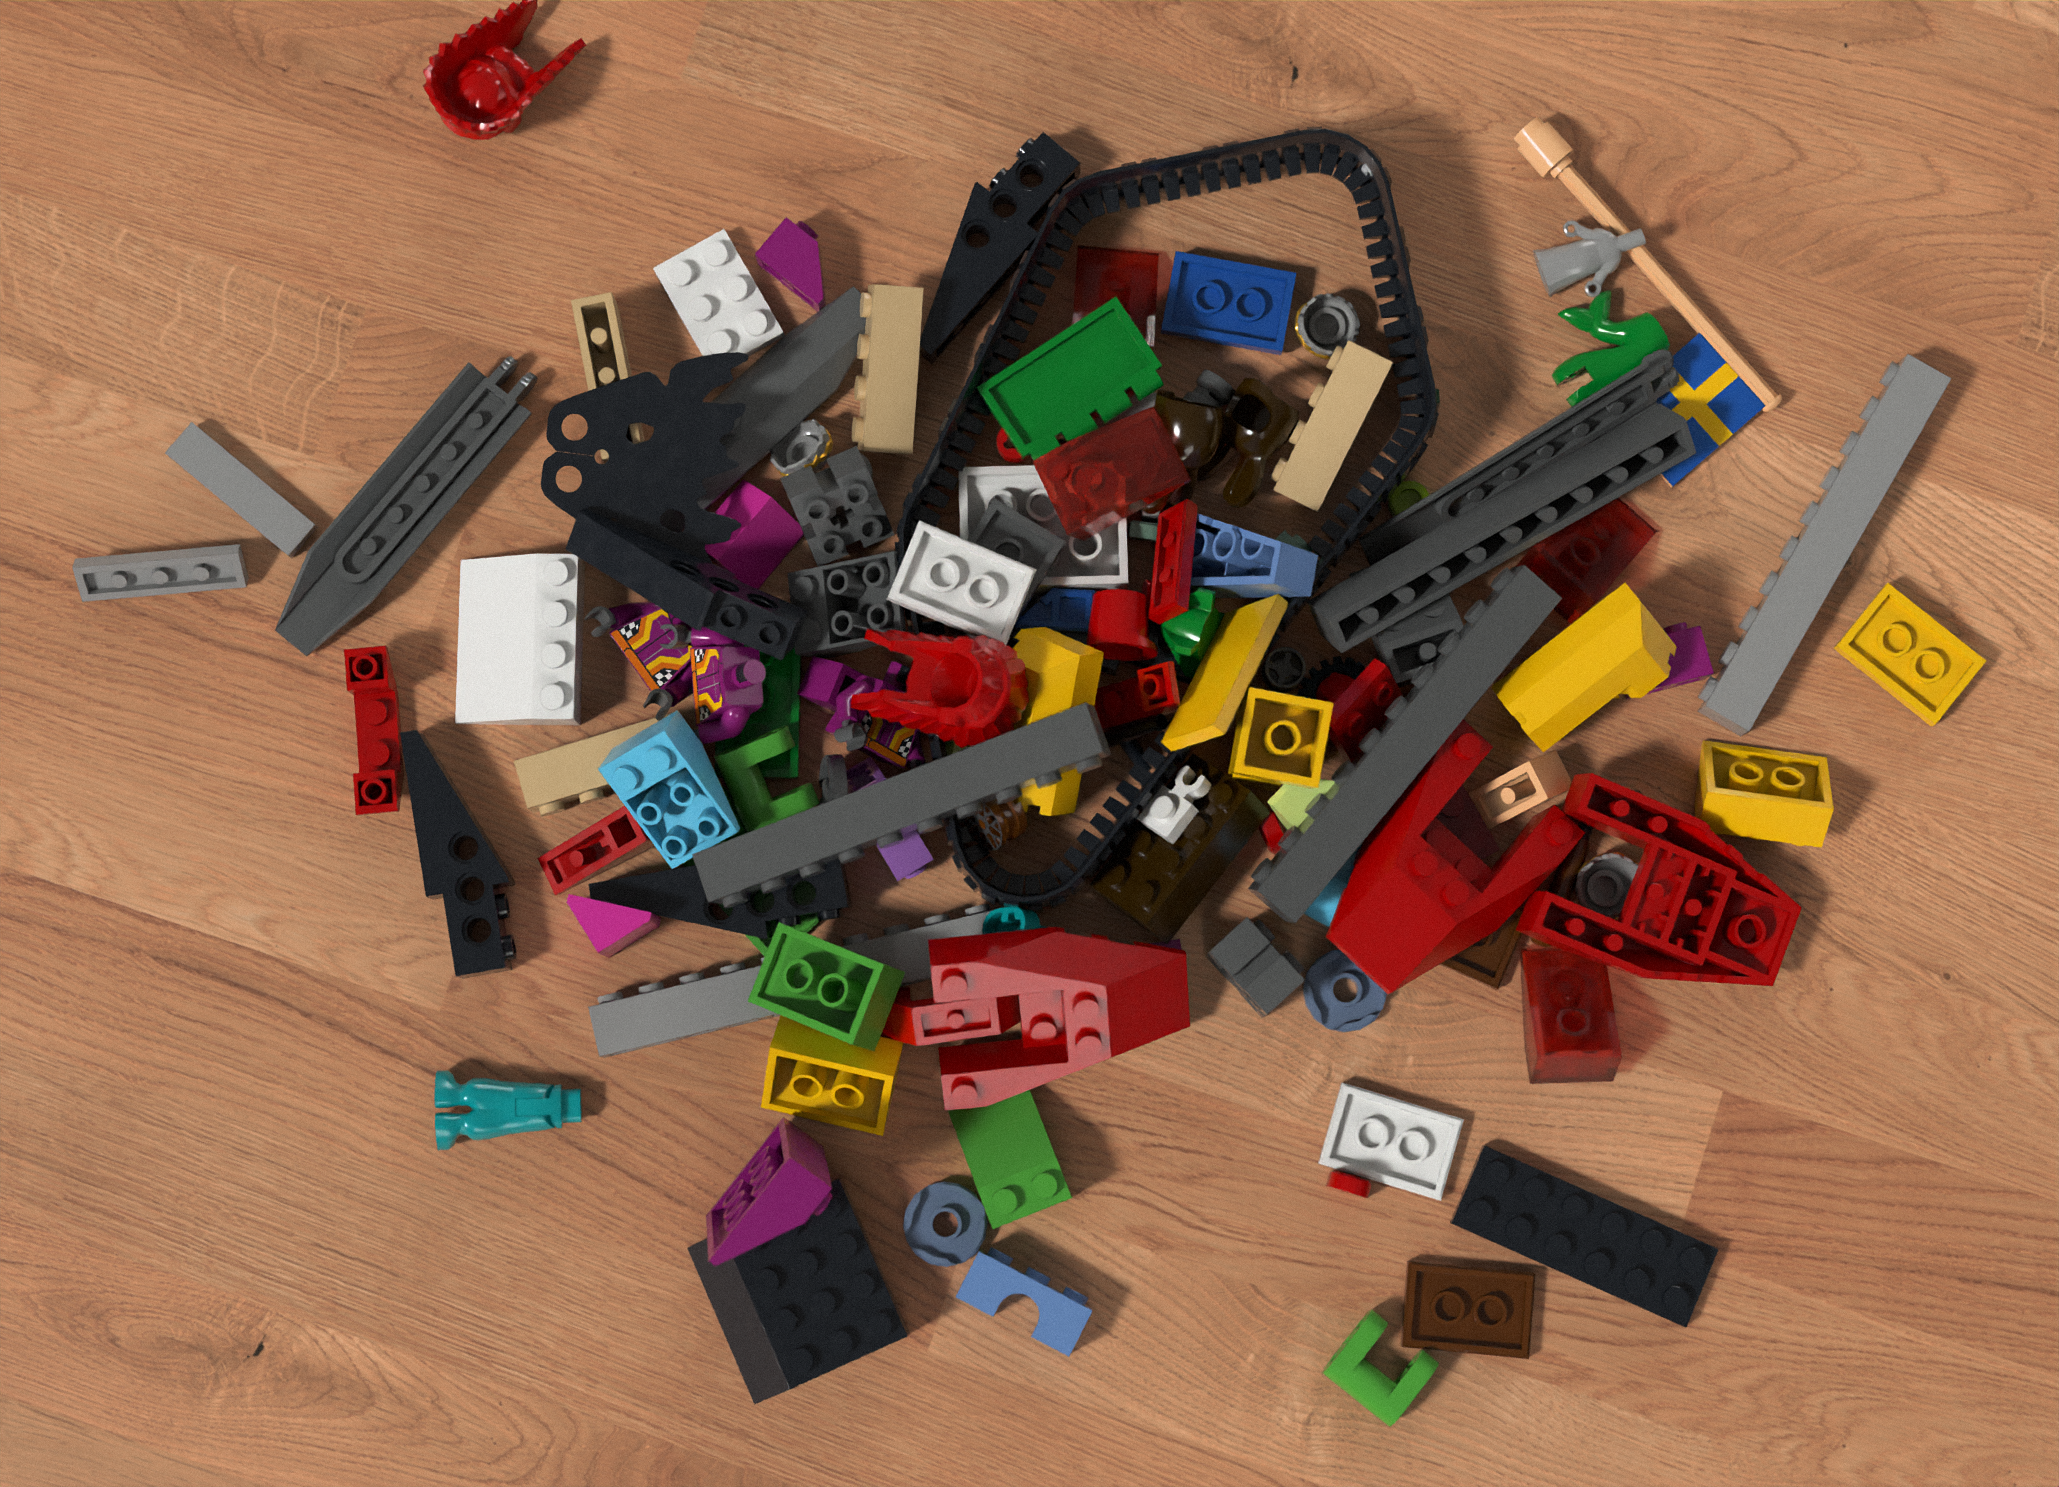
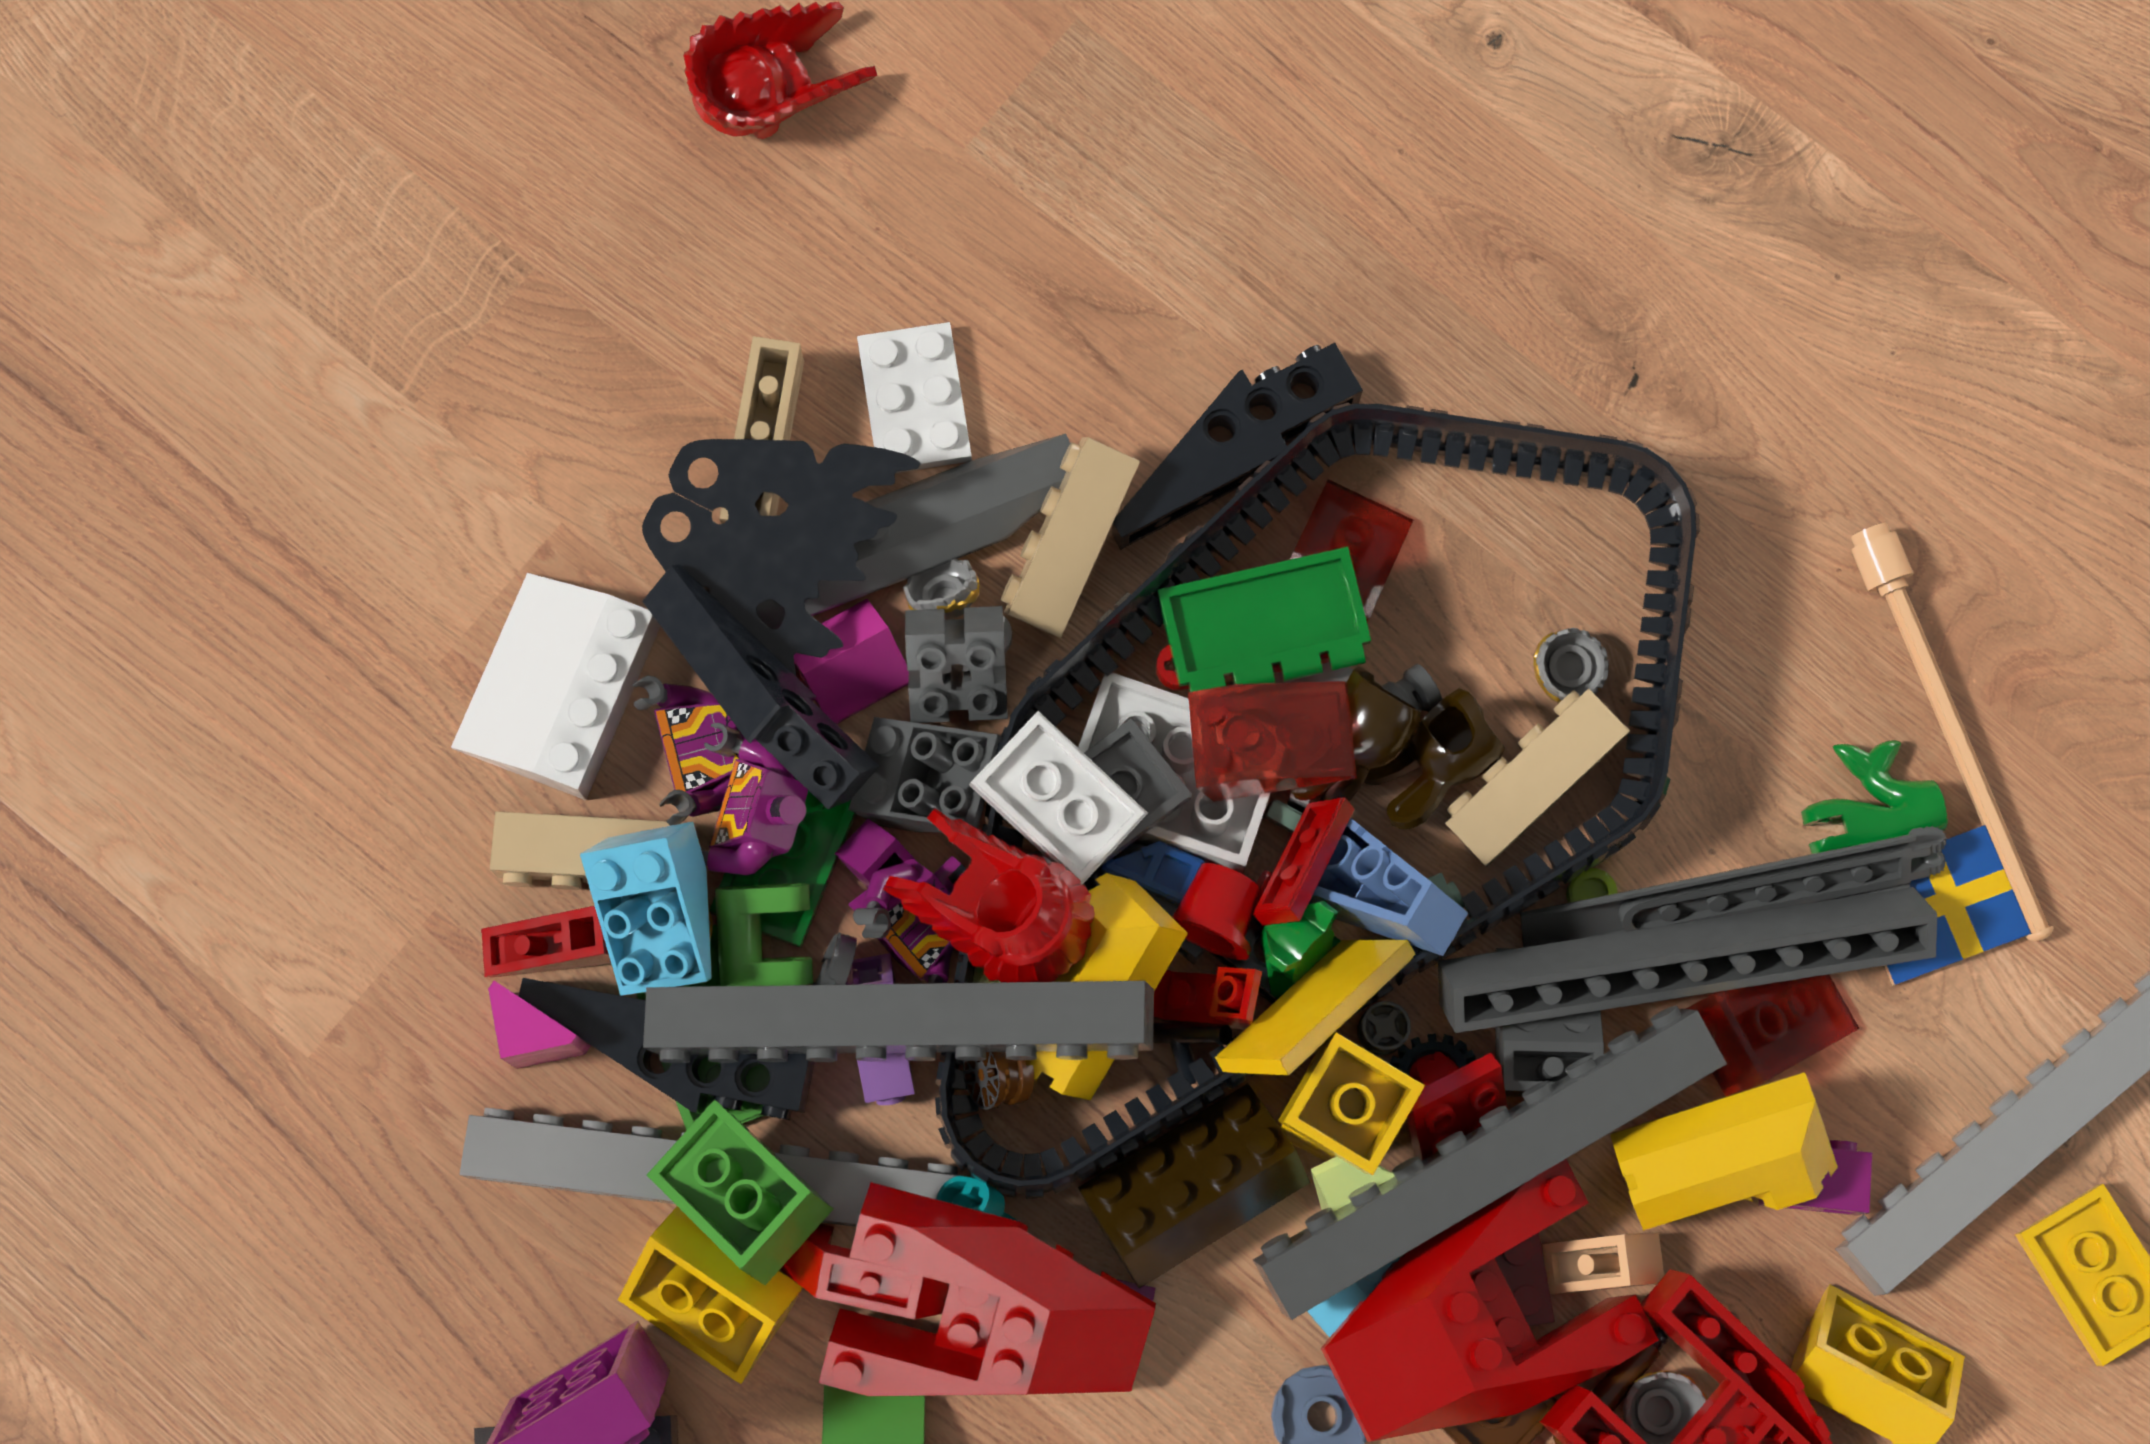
camera: 15 degrees right, 5 degrees down
(160, 572) = (200, 467): light grey plate -> none
(241, 490) = (323, 411): light grey tile -> none
(378, 730) = (364, 725): red slope -> none
(403, 502) = (489, 488): dark grey hinge -> none
(441, 826) = (390, 852): black brick -> none
(500, 1108) = (329, 1191): teal piece -> none
(795, 261) = (1013, 384): magenta slope -> none
(1173, 809) = (1201, 1138): white plate -> none
(1228, 303) = (1470, 601): blue plate -> none
(1256, 966) = (1230, 1353): dark grey brick -> none
(1271, 833) = (1303, 1206): red tile -> none
(1596, 253) = (1872, 695): light grey piece -> none

